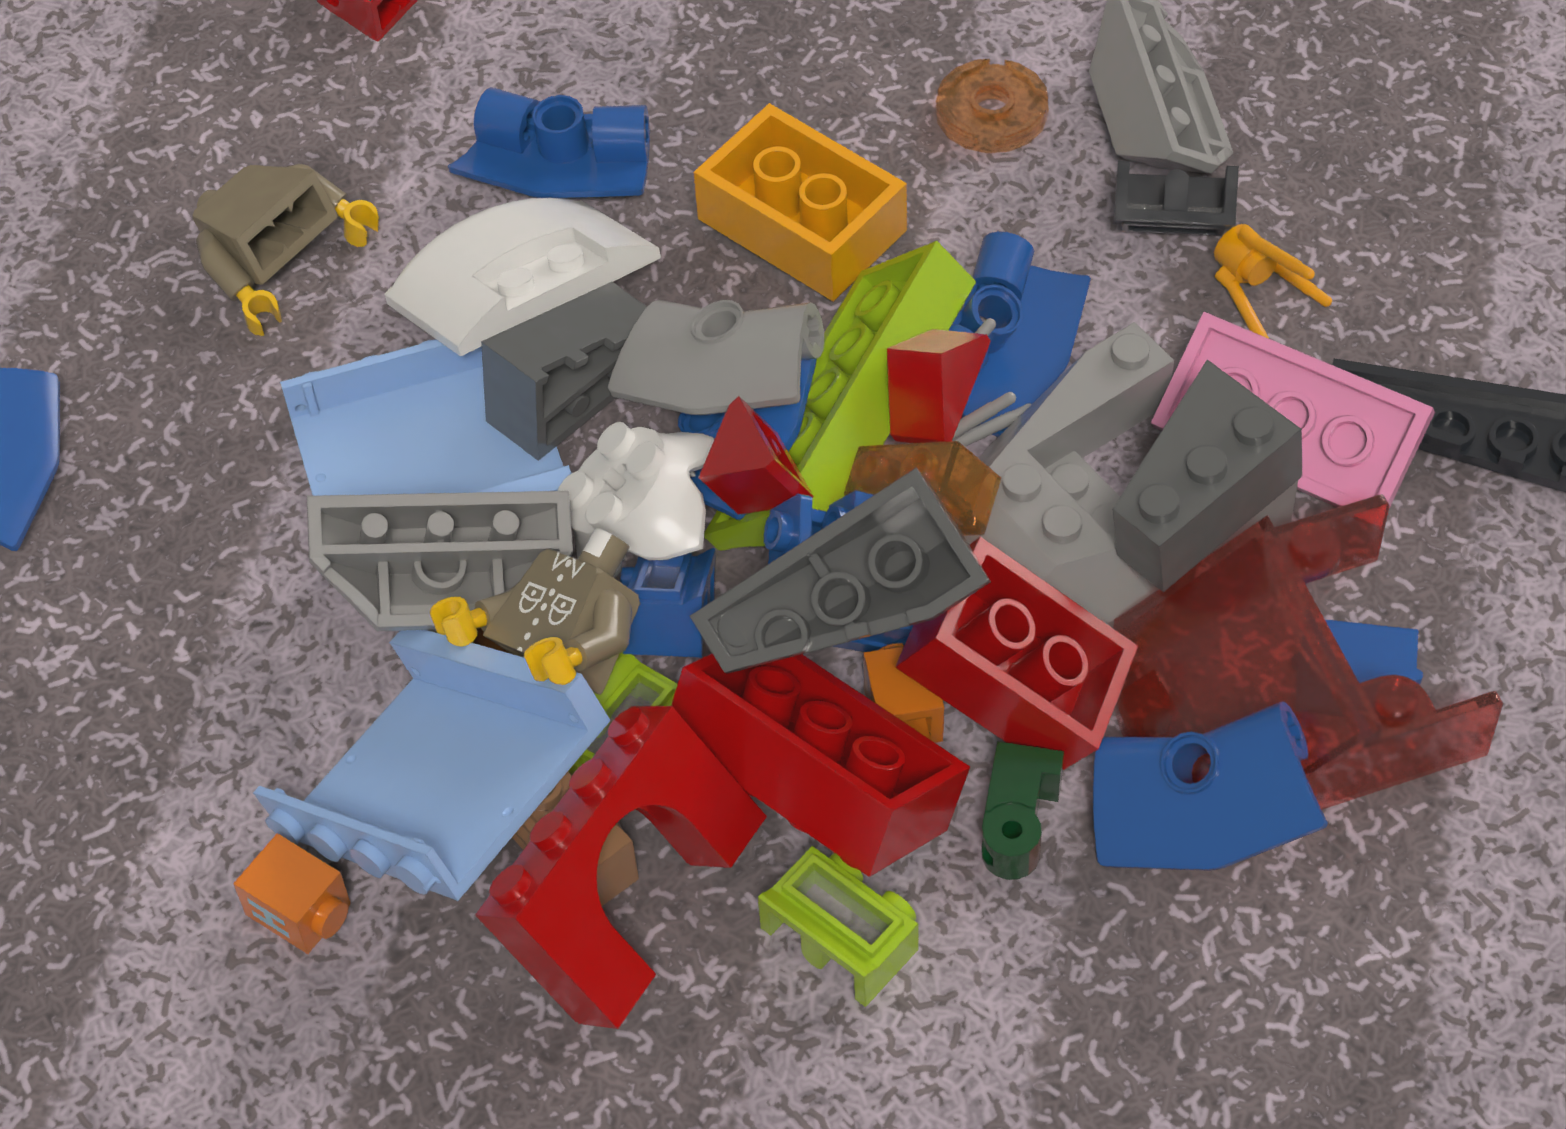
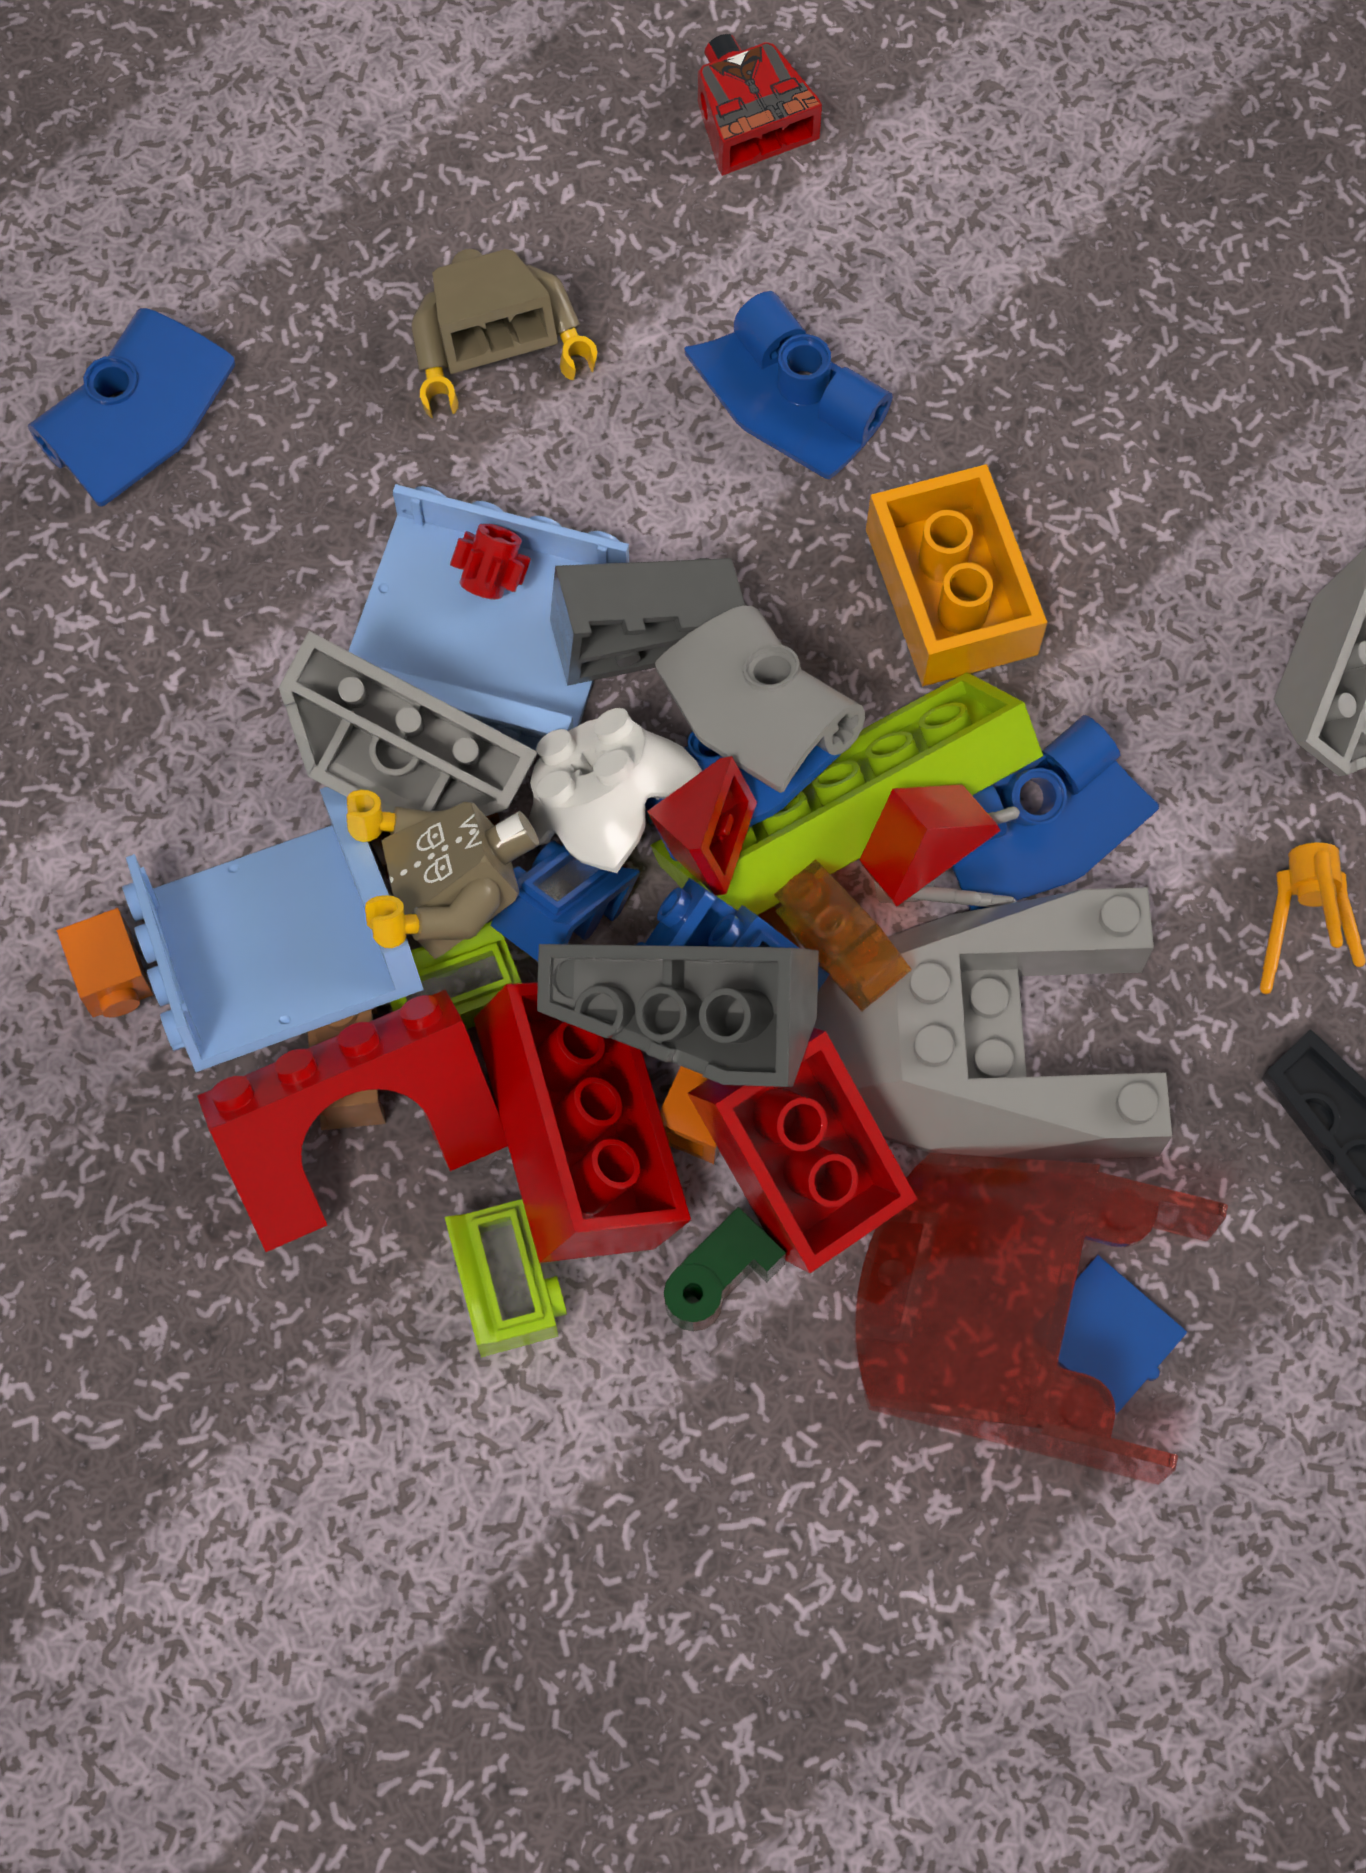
camera: 30 degrees right, 15 degrees up
(406, 397) = (490, 561): none -> red gear
(512, 268) = (666, 491): white slope -> none
(988, 129) = (1201, 603): clear orange tile -> none
(1175, 202) = (1284, 782): black window -> none
(1204, 477) = (1074, 1089): dark grey wedge -> none
(1246, 804) = (827, 1365): blue panel -> none
(1353, 430) = (1225, 1066): bright pink plate -> none

